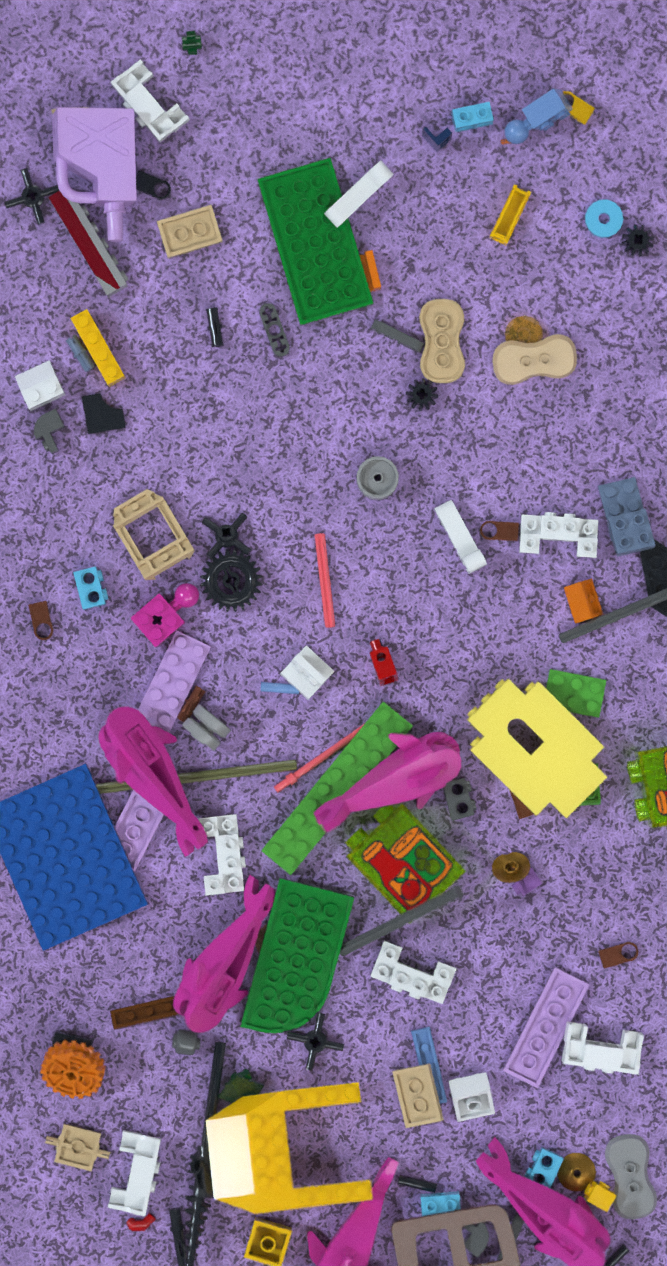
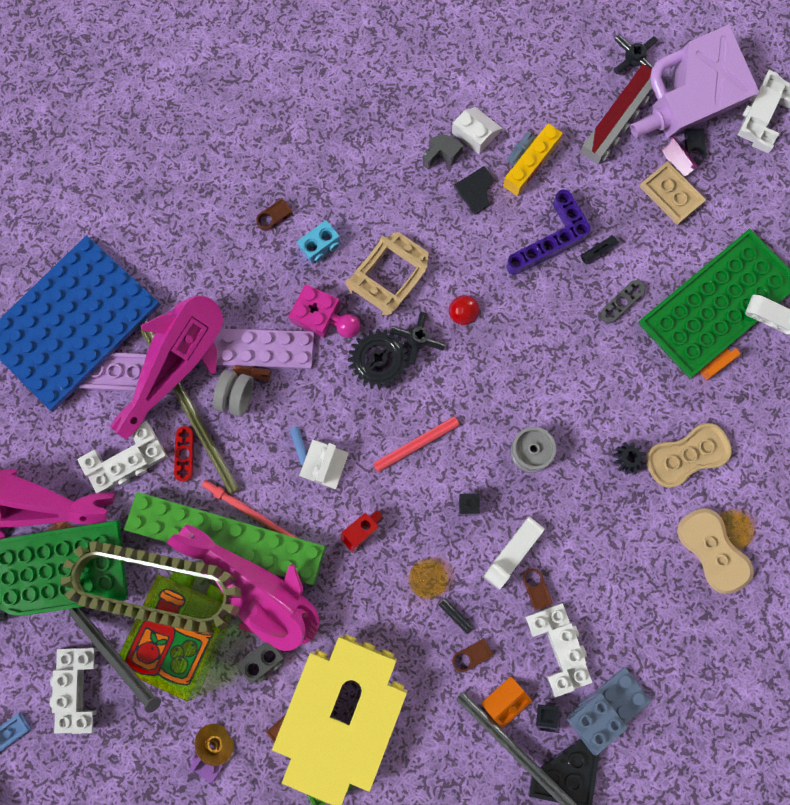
camera: 75 degrees right, 10 degrees down
(158, 207) = (679, 157): none -> panel
(187, 364) = (553, 240): none -> dark purple beam
(216, 480) = (464, 310): none -> red piece
(252, 807) = (189, 440): none -> red beam
(333, 852) = (156, 561): none -> olive piece
(401, 337) = (673, 412): dark grey beam -> none
(401, 557) = (469, 504): none -> black brick
(450, 622) = (428, 579): none -> clear yellow tile
(492, 612) = (456, 616): none -> black piece
(532, 608) = (477, 654): none -> copper piece
(577, 692) = (414, 735): bright green plate -> none
(611, 571) = (548, 718): none -> black brick

